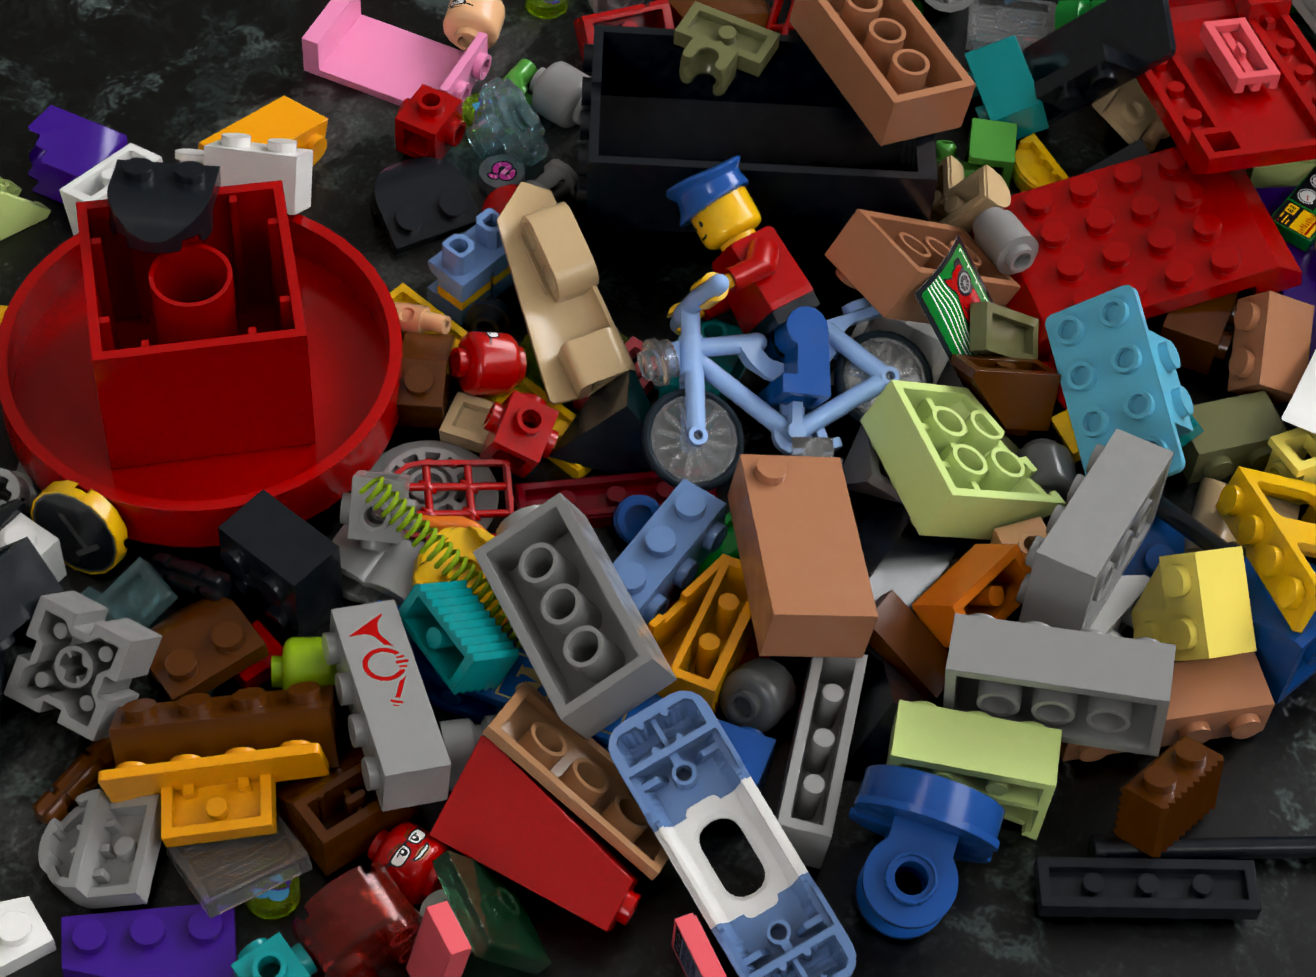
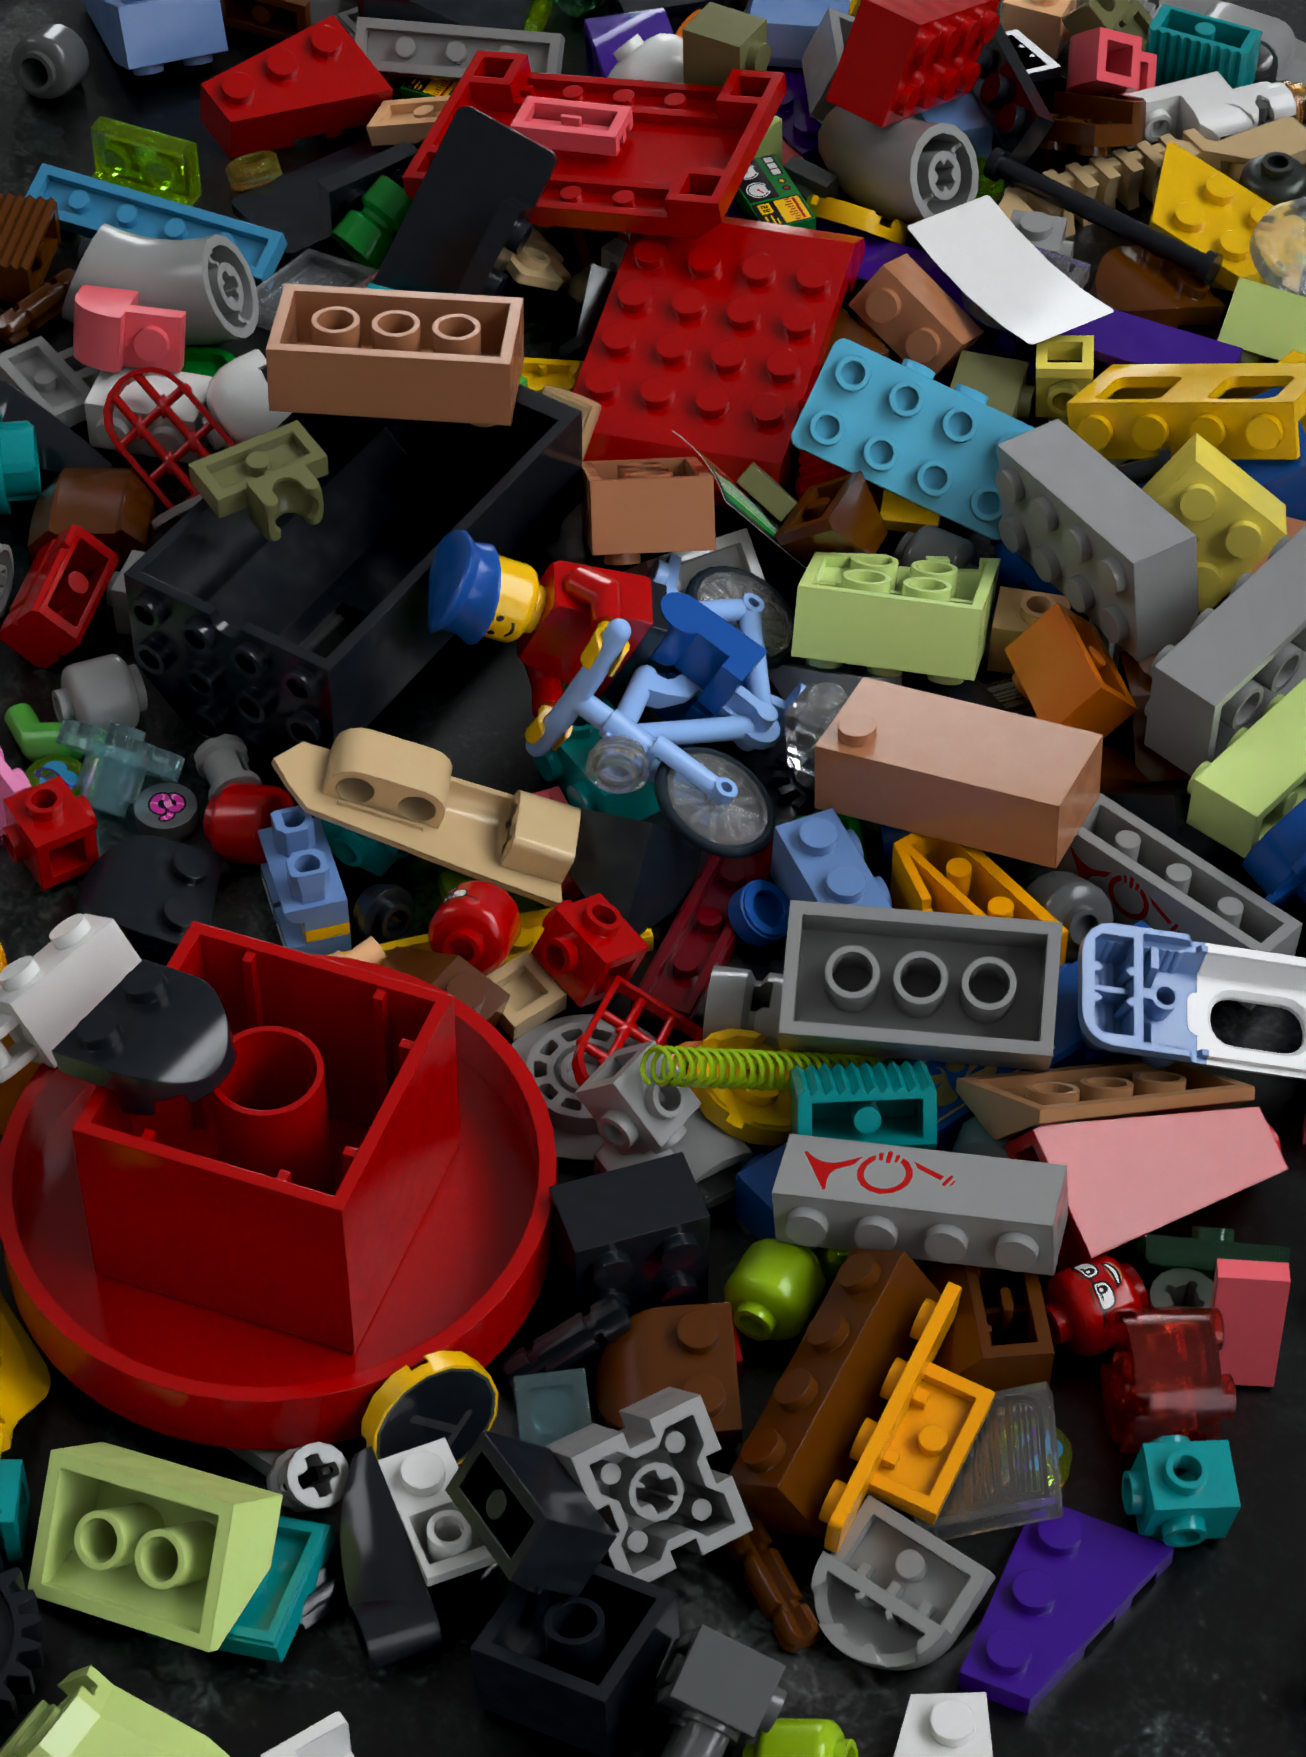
camera: 55 degrees left, 5 degrees down
(1005, 240) = (641, 430): light grey brick -> none

